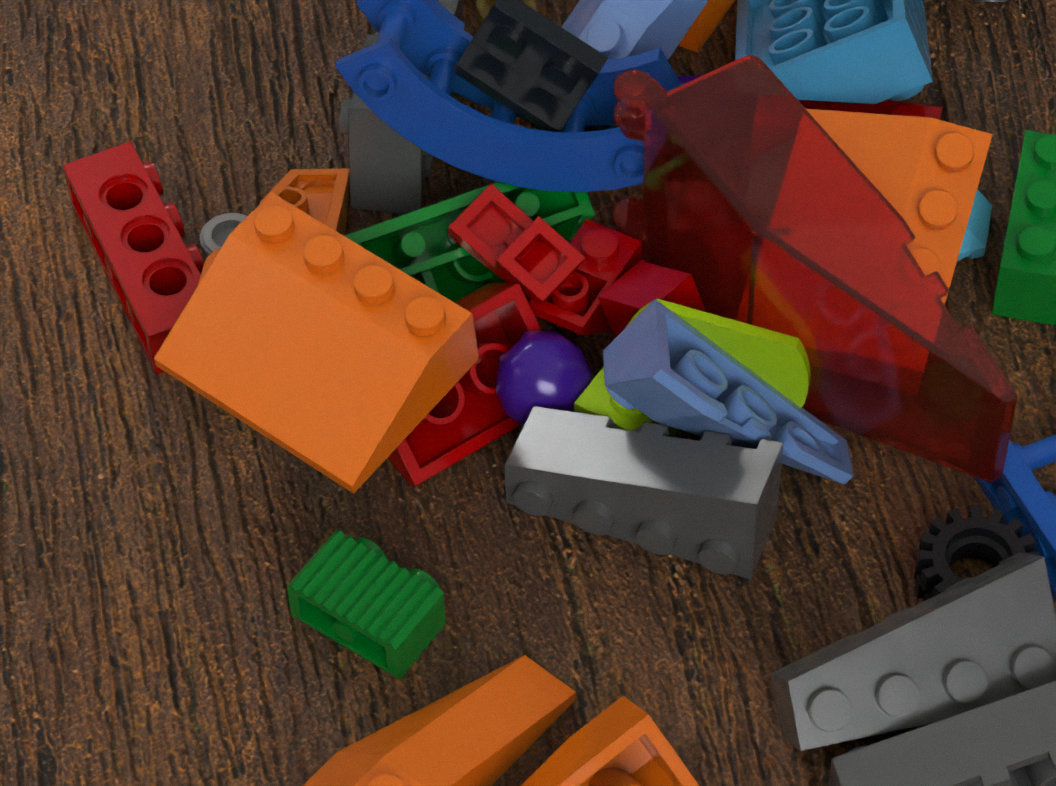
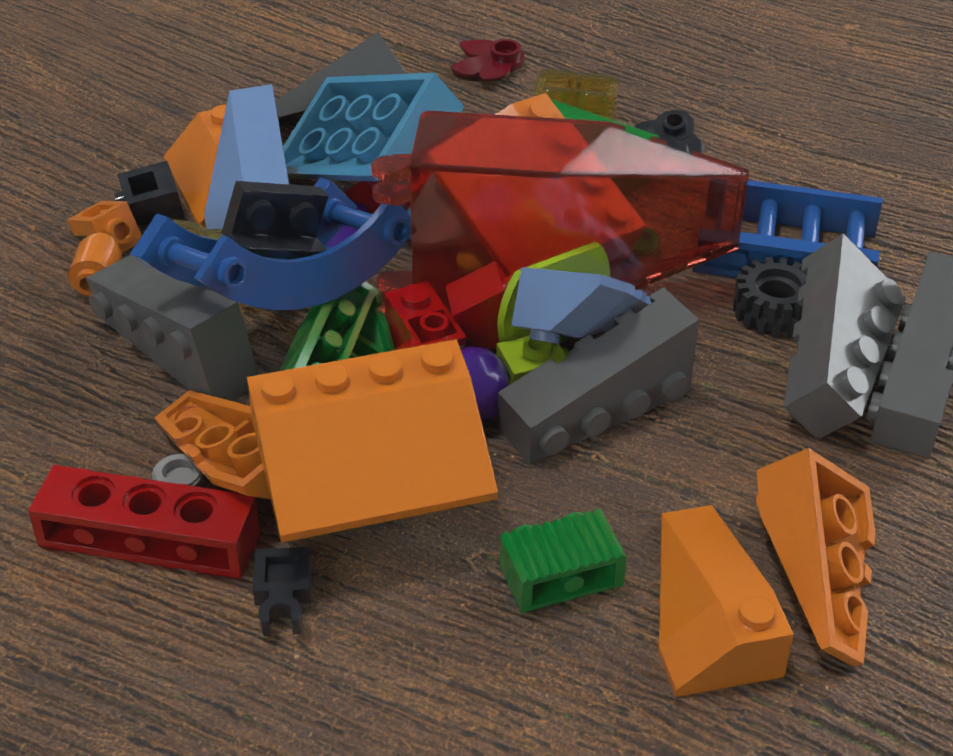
camera: 55 degrees left, 10 degrees down
(154, 406) = (281, 585): none -> black plate
(515, 245) = (379, 326): red slope -> none

